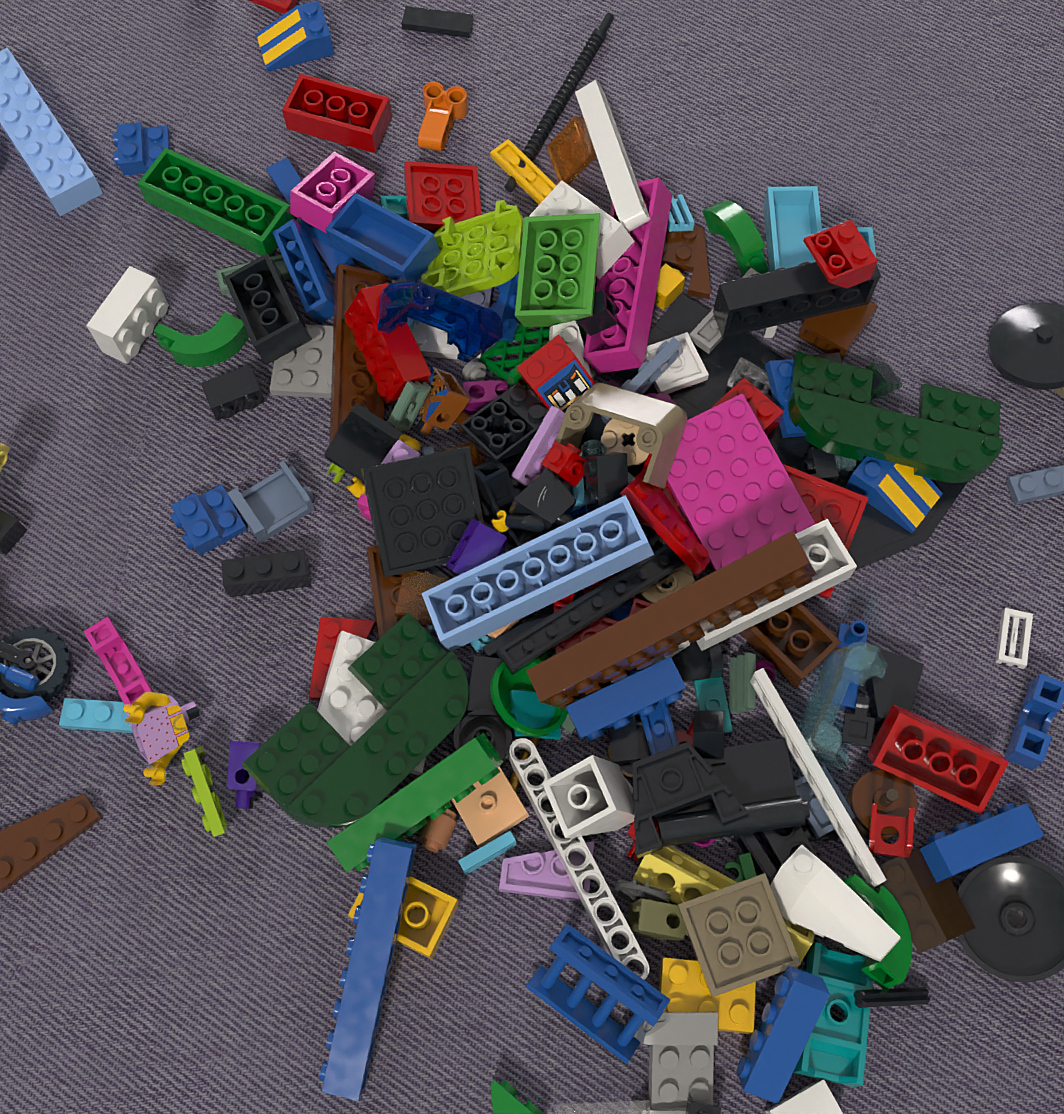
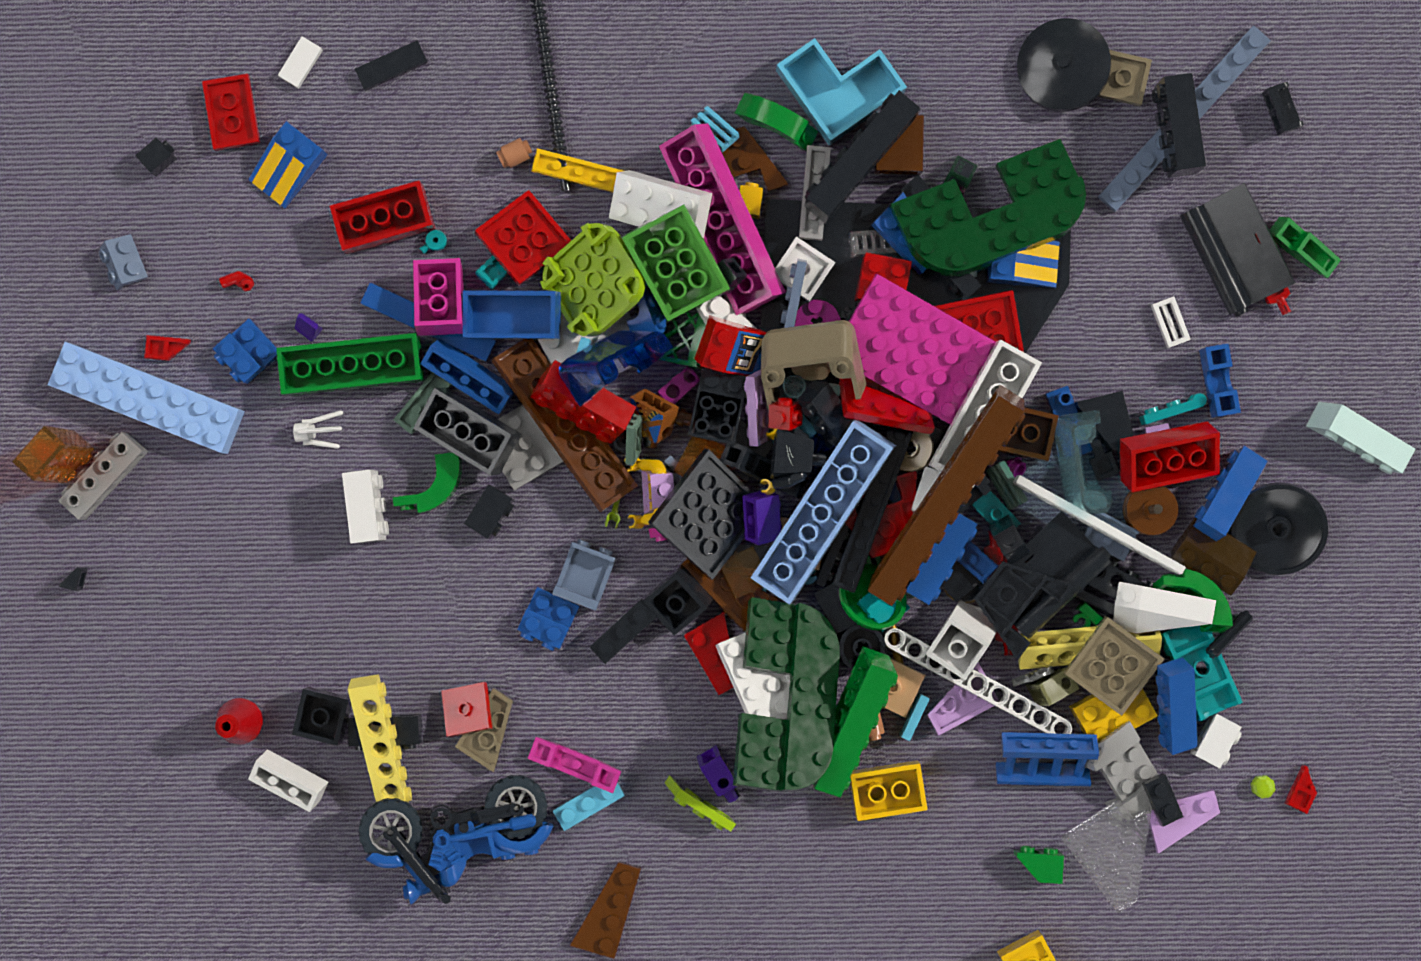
camera: 30 degrees left, 20 degrees up
(66, 547) = (466, 709): none -> plate
(69, 581) = (486, 744): none -> dark tan wing
(82, 108) = (164, 347): none -> red tile
(108, 30) = (122, 261): none -> sand blue bracket
(137, 235) = (305, 431): none -> white plant
(159, 730) = (639, 788): torso -> none
(185, 95) = (239, 279): none -> red arm
(207, 156) = (307, 327): none -> dark purple slope
(338, 575) = (678, 600): none -> black brick
(361, 441) = (622, 494): black bracket -> none
(368, 160) = (429, 240): none -> teal piece
(368, 968) = (895, 841): blue brick -> none
(441, 111) = (465, 162): orange piece -> none
(474, 371) = (656, 373): light grey plate -> none
(486, 134) = (514, 153): none -> nougat brick
(571, 150) = (597, 128): clear orange plate -> none
(612, 157) = (637, 118): white beam -> none
(842, 254) = (884, 119): red slope -> none
(904, 827) = (1181, 536): red piece -> none
(967, 721) = (1173, 408): none -> teal plate

